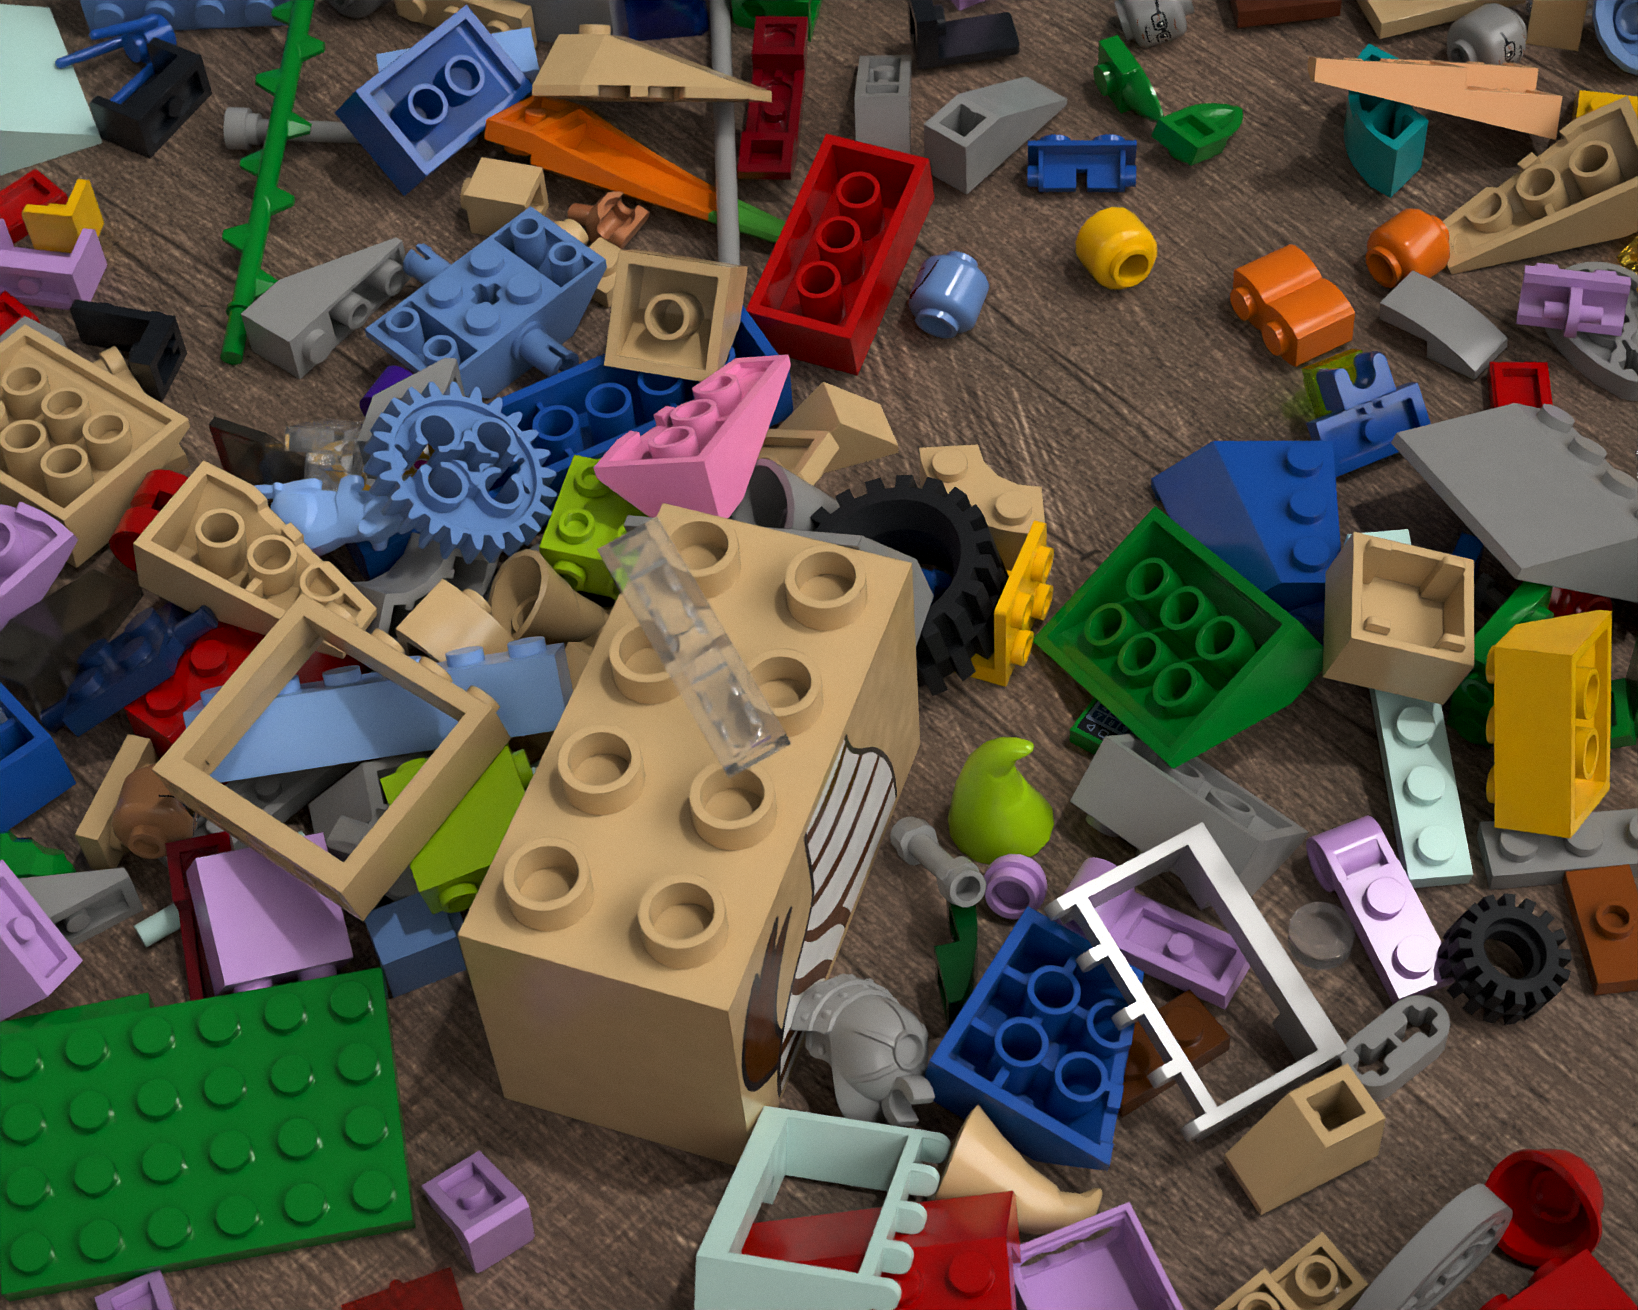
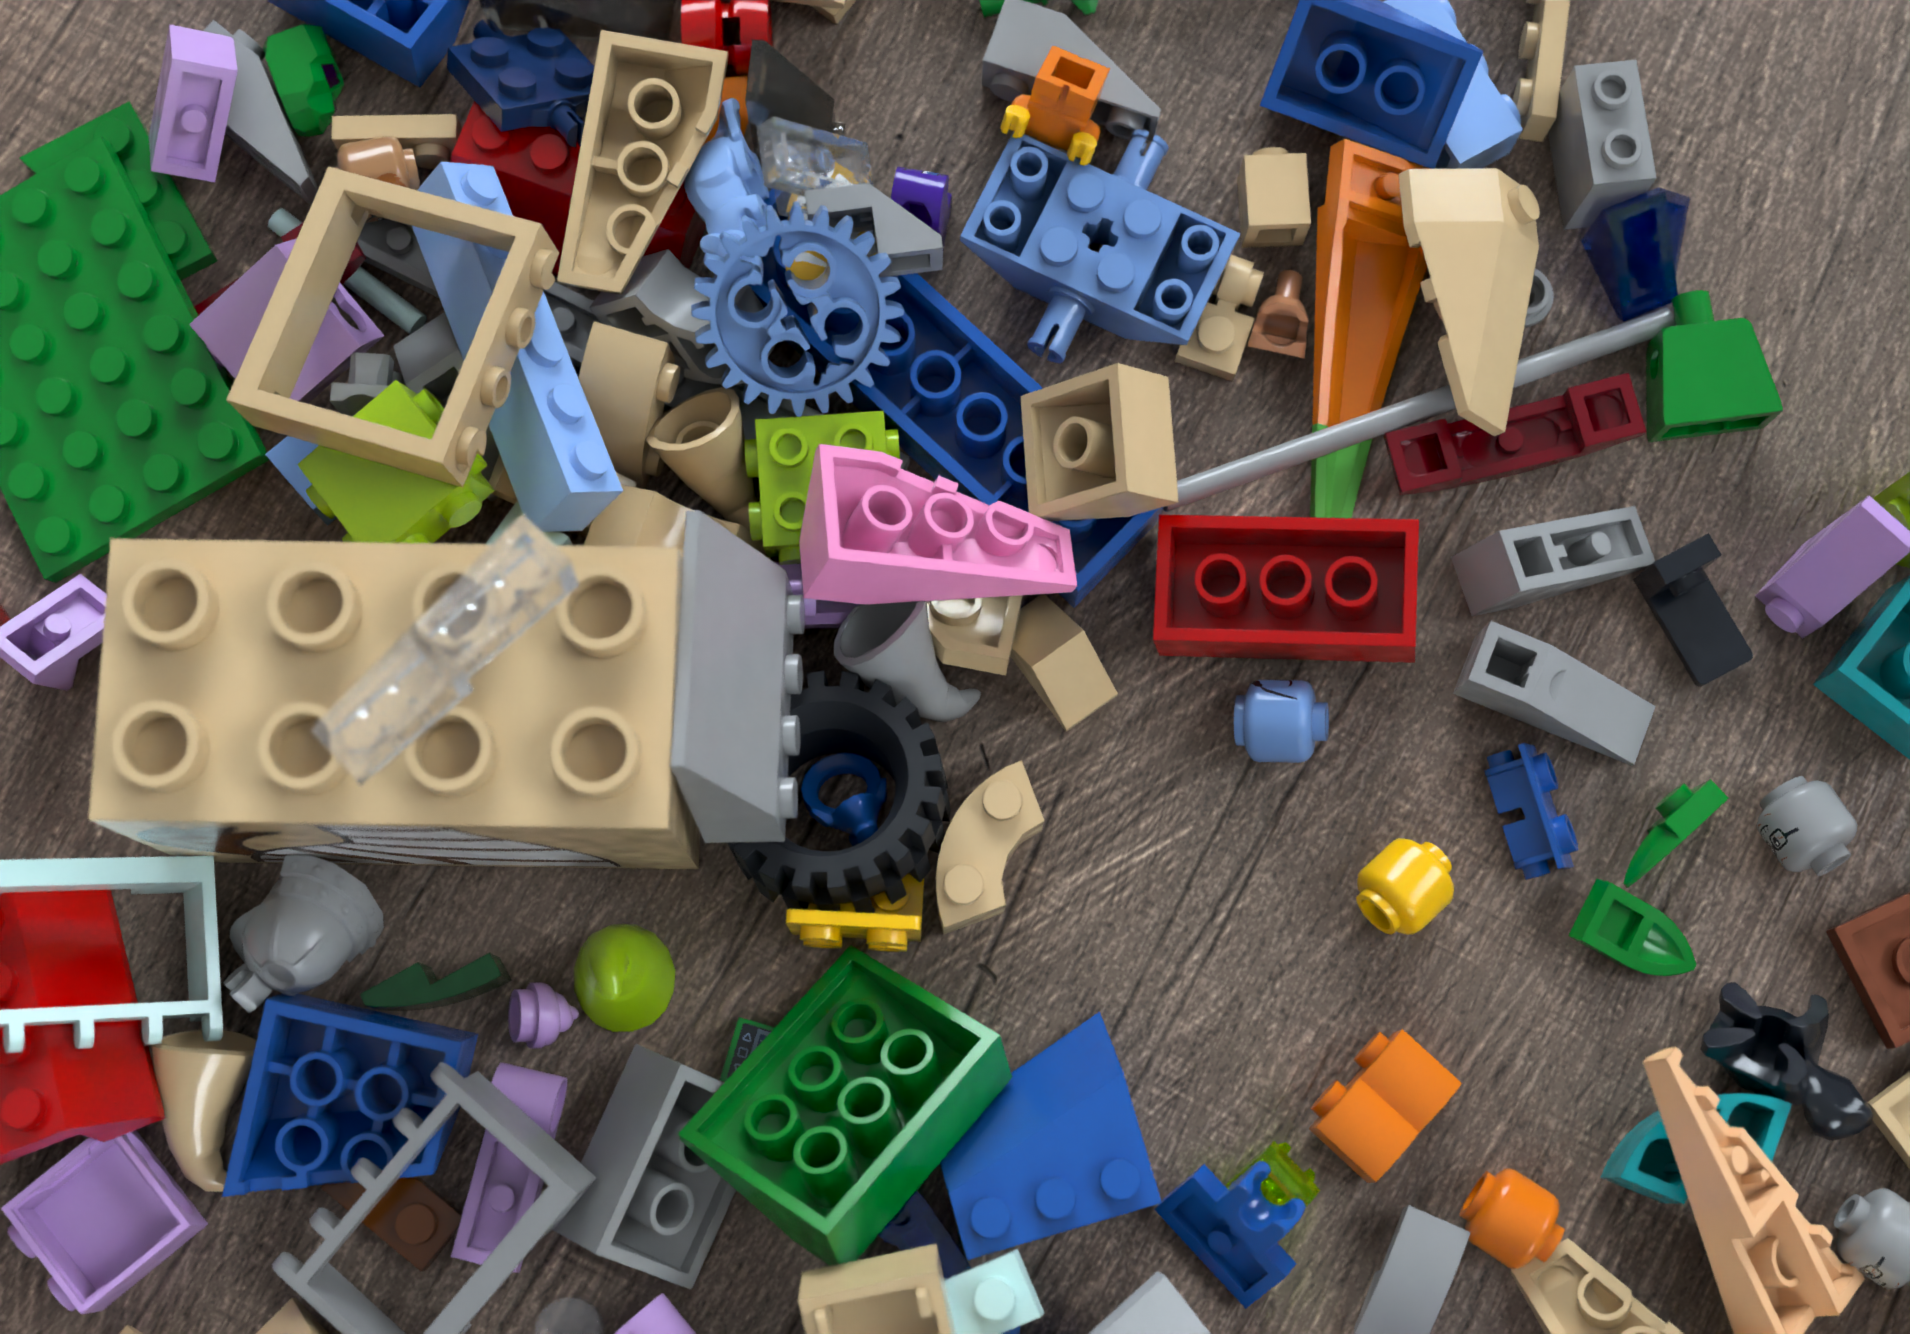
camera: 65 degrees right, 25 degrees up
(361, 287) = (1060, 105): none -> orange piece
(956, 877) = (485, 962): light grey bar -> none
(1345, 41) = (1780, 1057): none -> black animal

